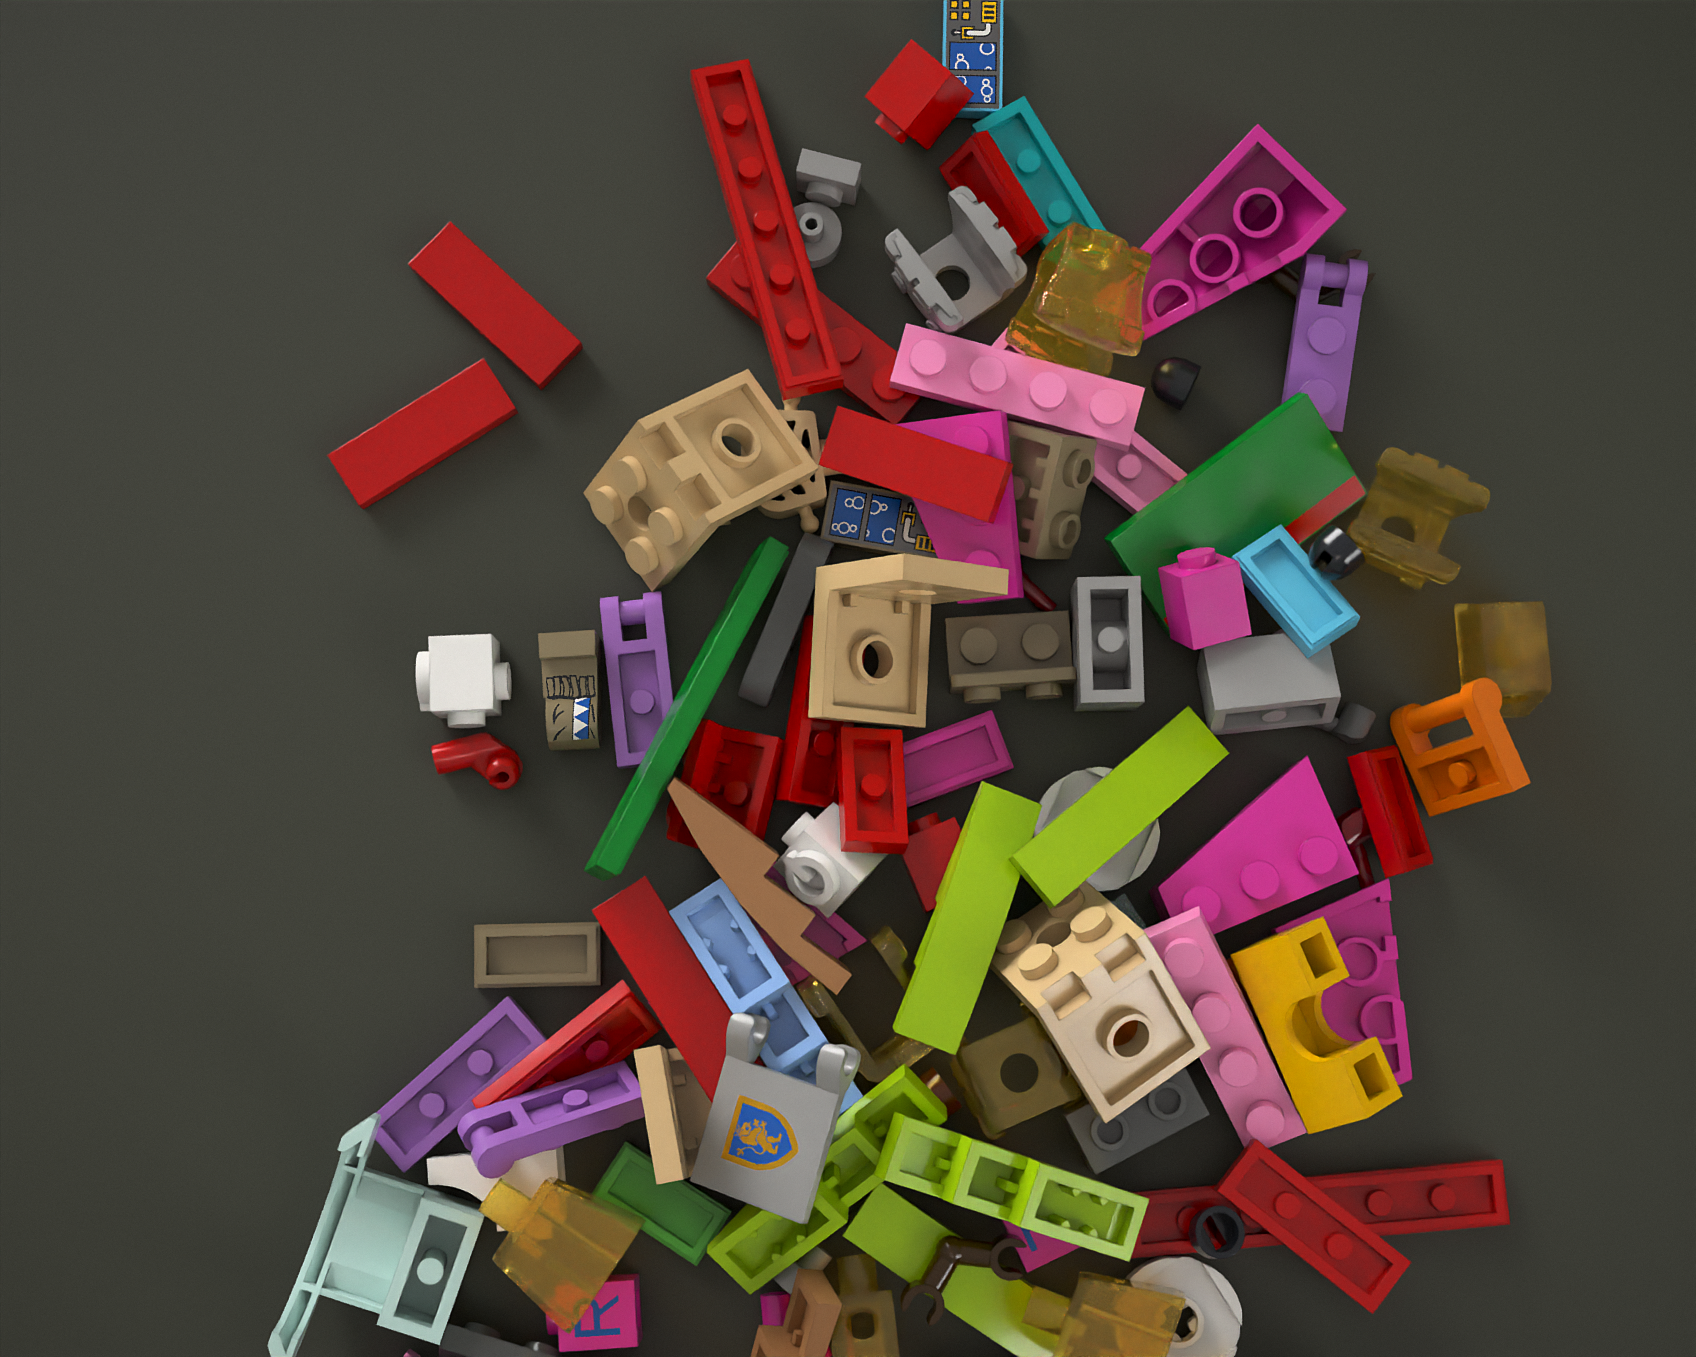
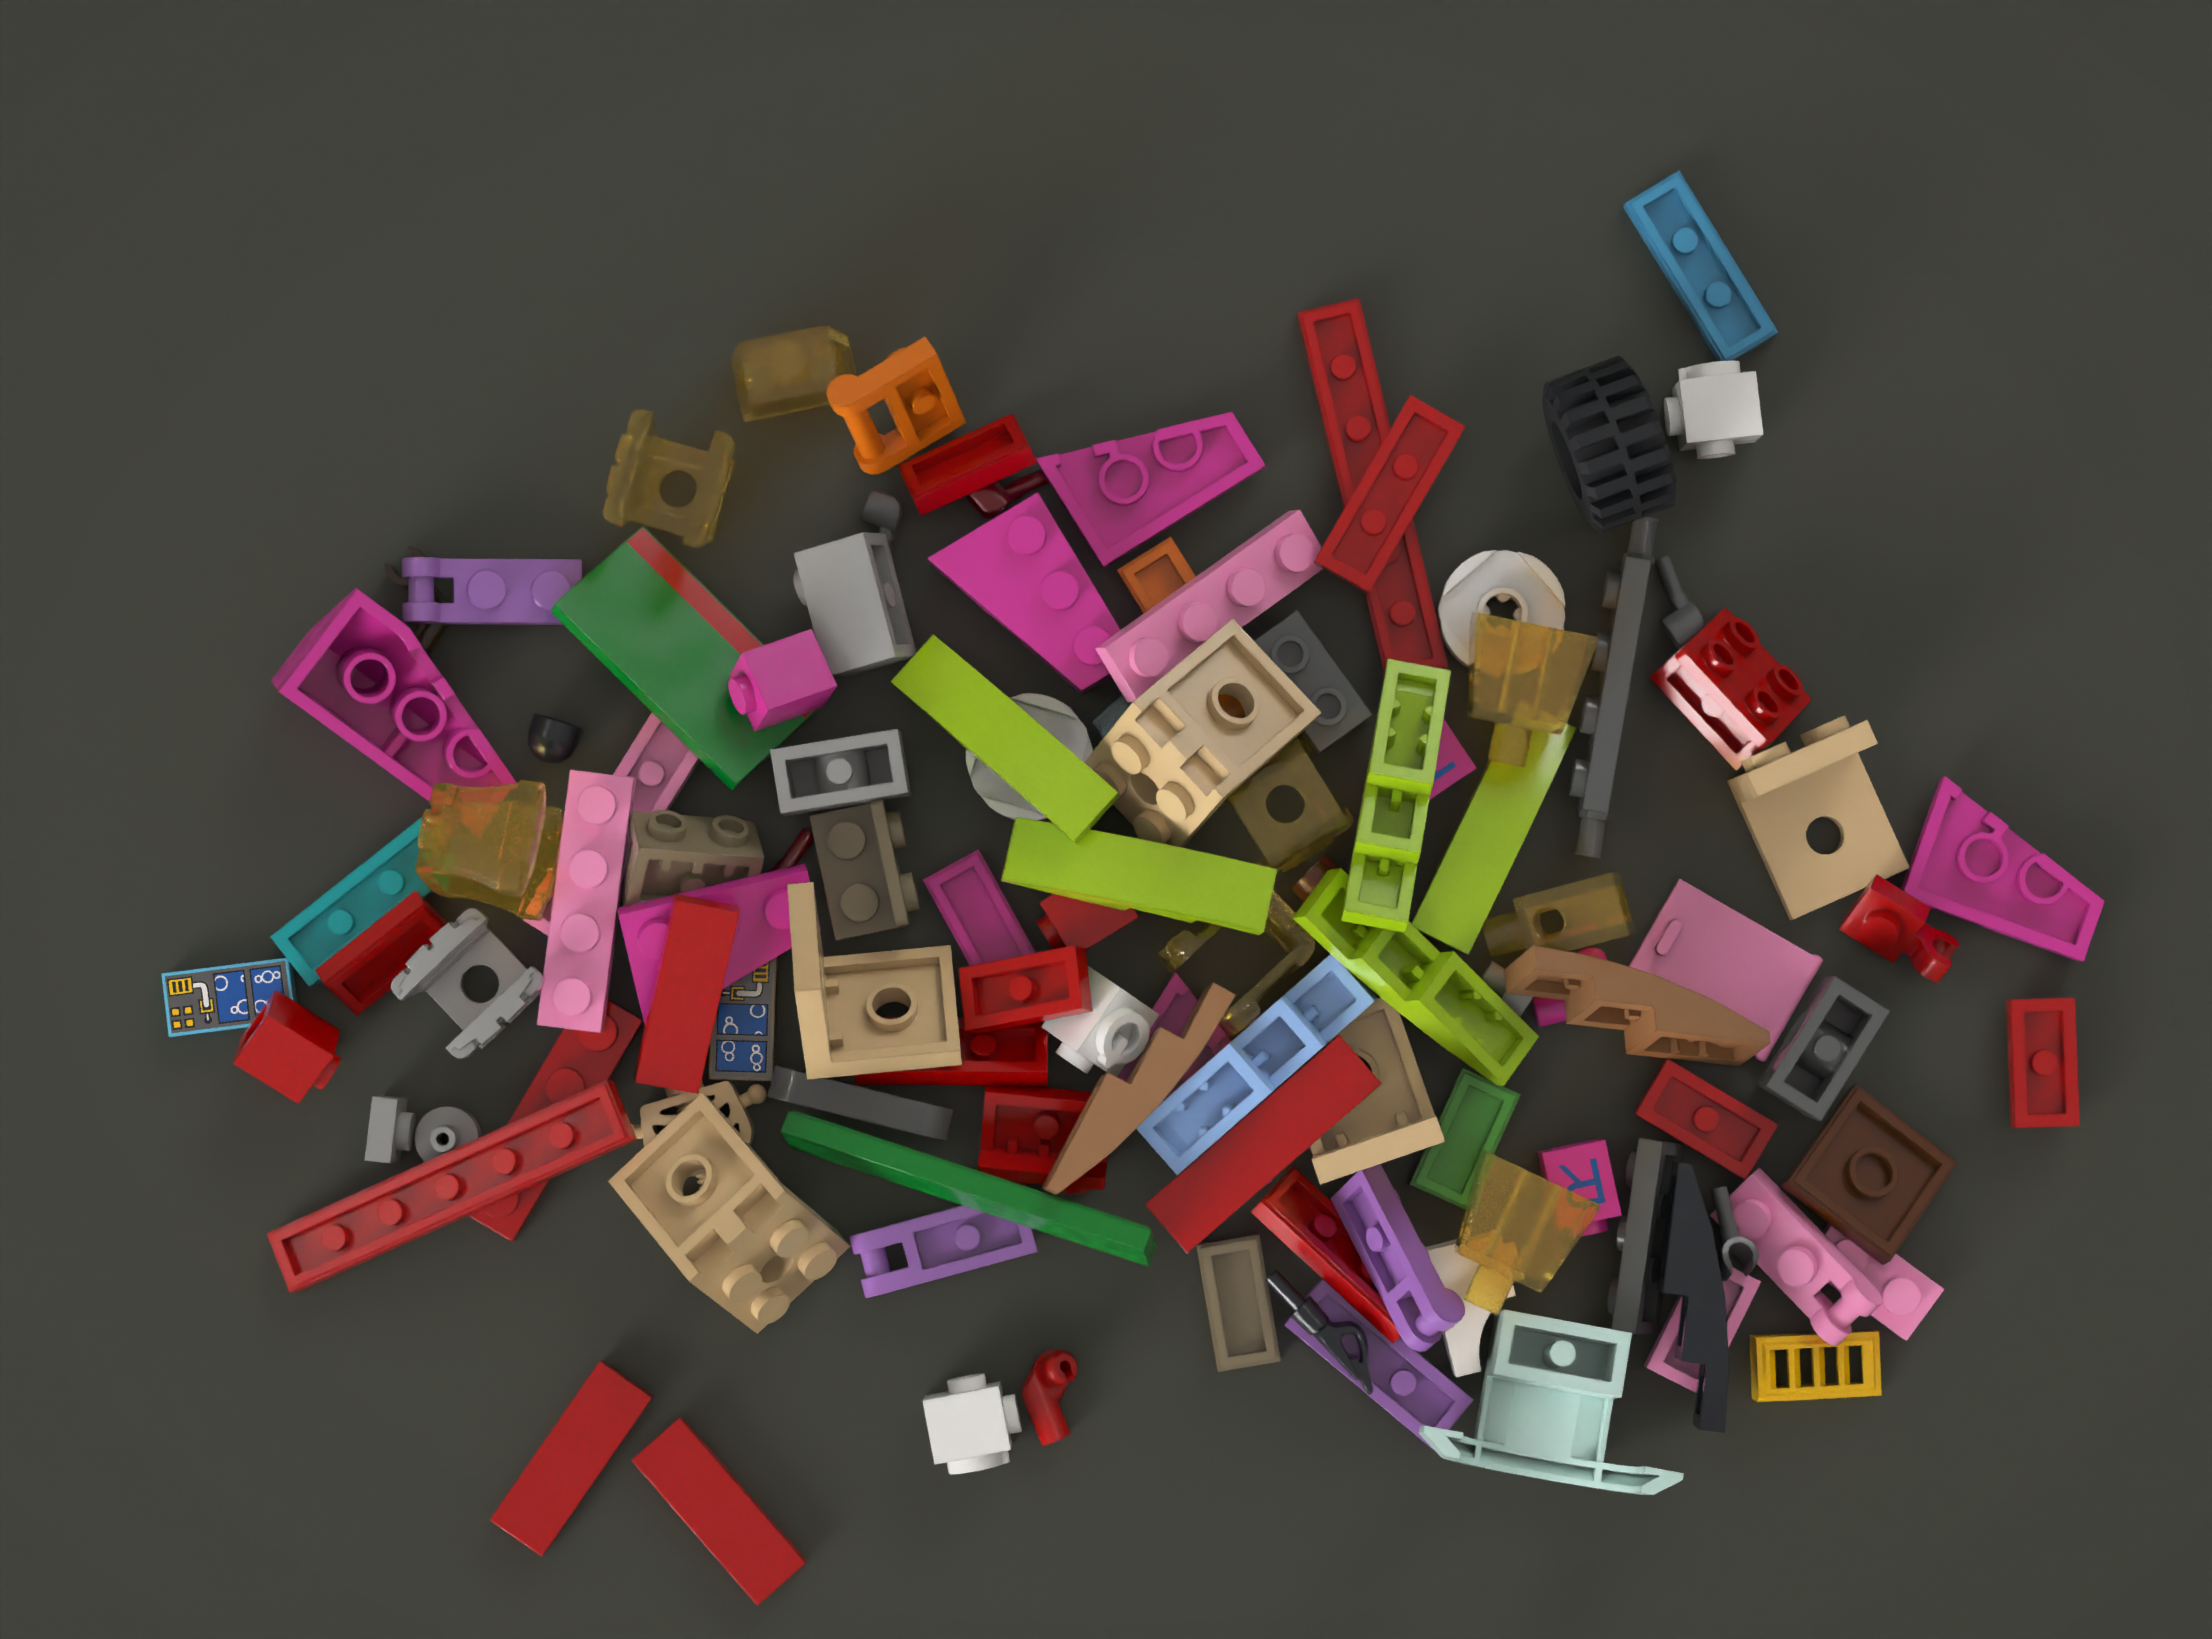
camera: 90 degrees left, 5 degrees up
(503, 1028) = (1327, 1333): none -> black hand
(572, 689) = (965, 1310): dark tan leg -> none
(769, 1128) = (1375, 1042): light grey flag -> none
(948, 1255) = (1466, 840): dark brown arm -> none
(1225, 1227) = (1403, 579): black hinge -> none
(1295, 593) = (759, 590): medium azure tile -> none
(1327, 1075) = (1239, 501): yellow arch -> none
(1338, 553) = (716, 552): black hinge -> none

